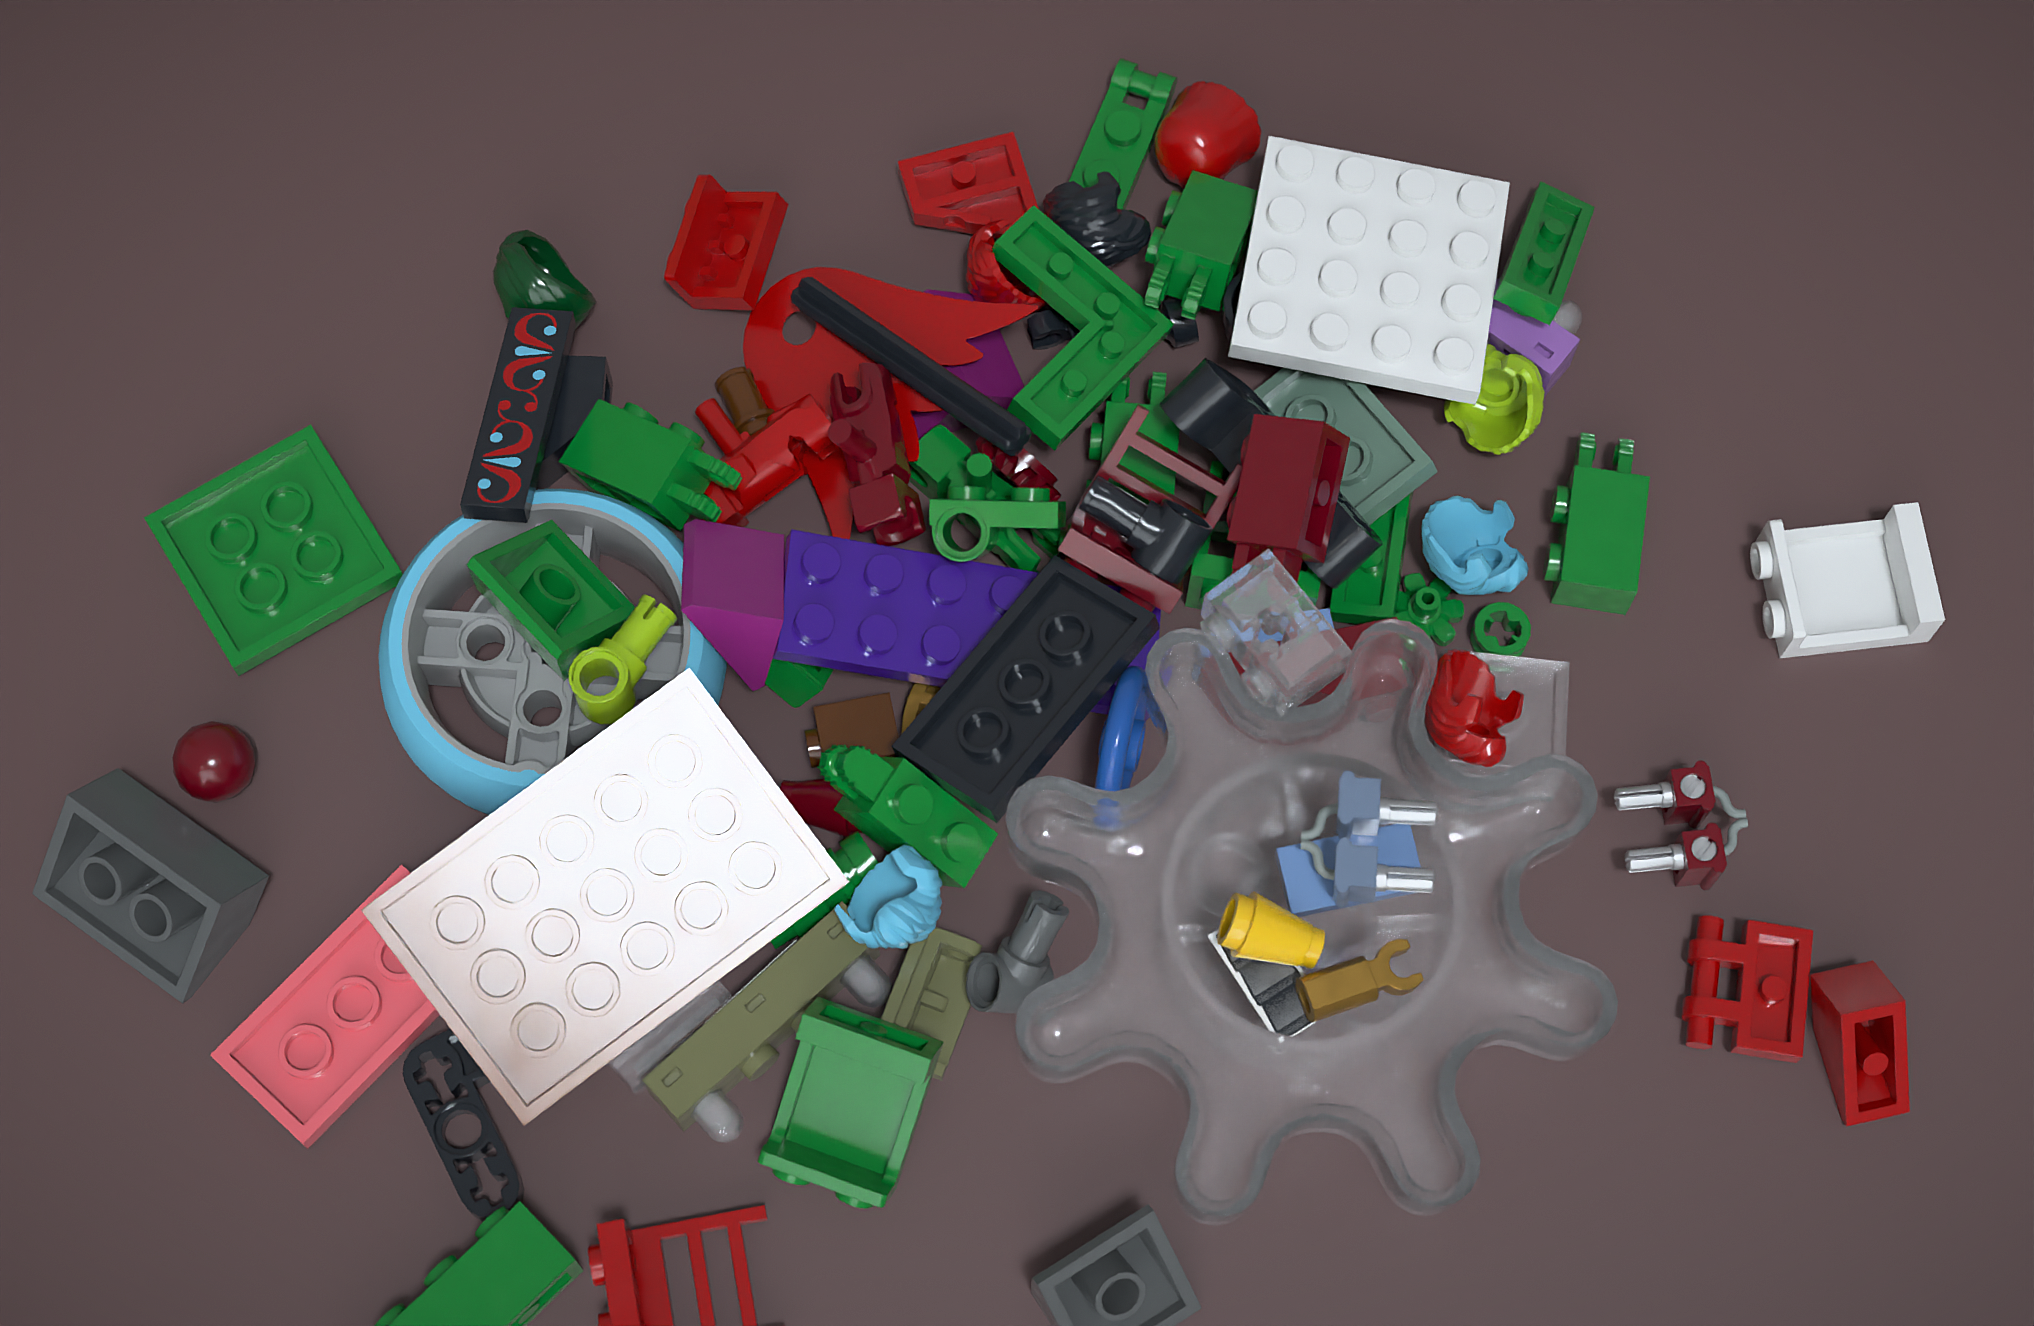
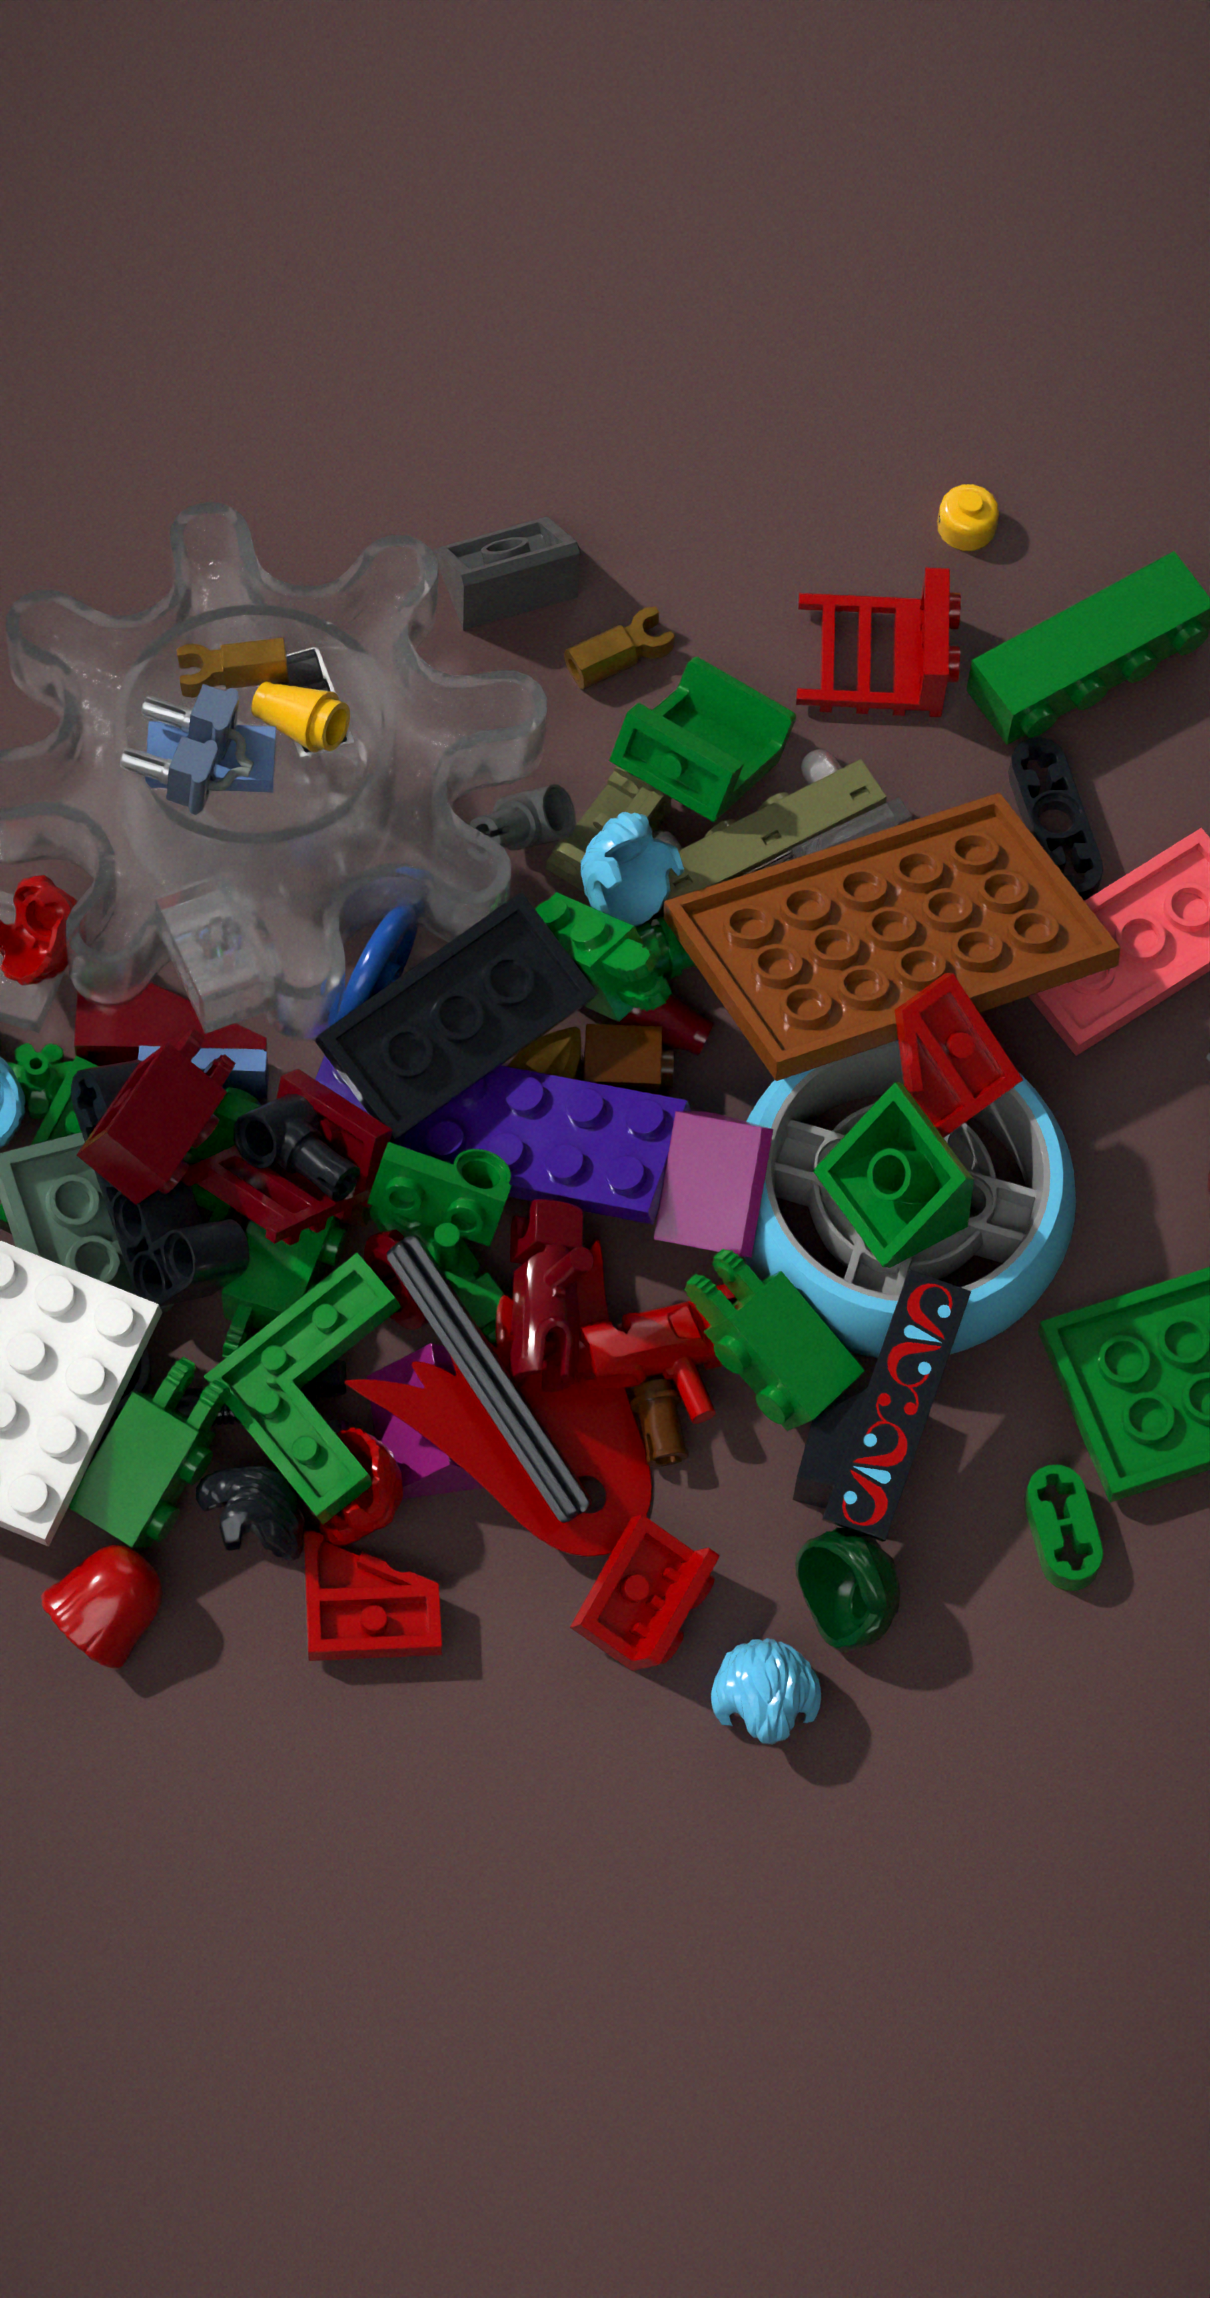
camera: 170 degrees left, 5 degrees down
(366, 395) = (1049, 1531): none -> green beam
(516, 725) = (950, 1055): none -> red wing
(602, 191) = (767, 1688): none -> medium azure hair
(622, 659) = (837, 1106): lime pin -> none
(972, 1221) = (617, 649): none -> pearl gold bar
(1122, 132) = (194, 1633): green plate -> none

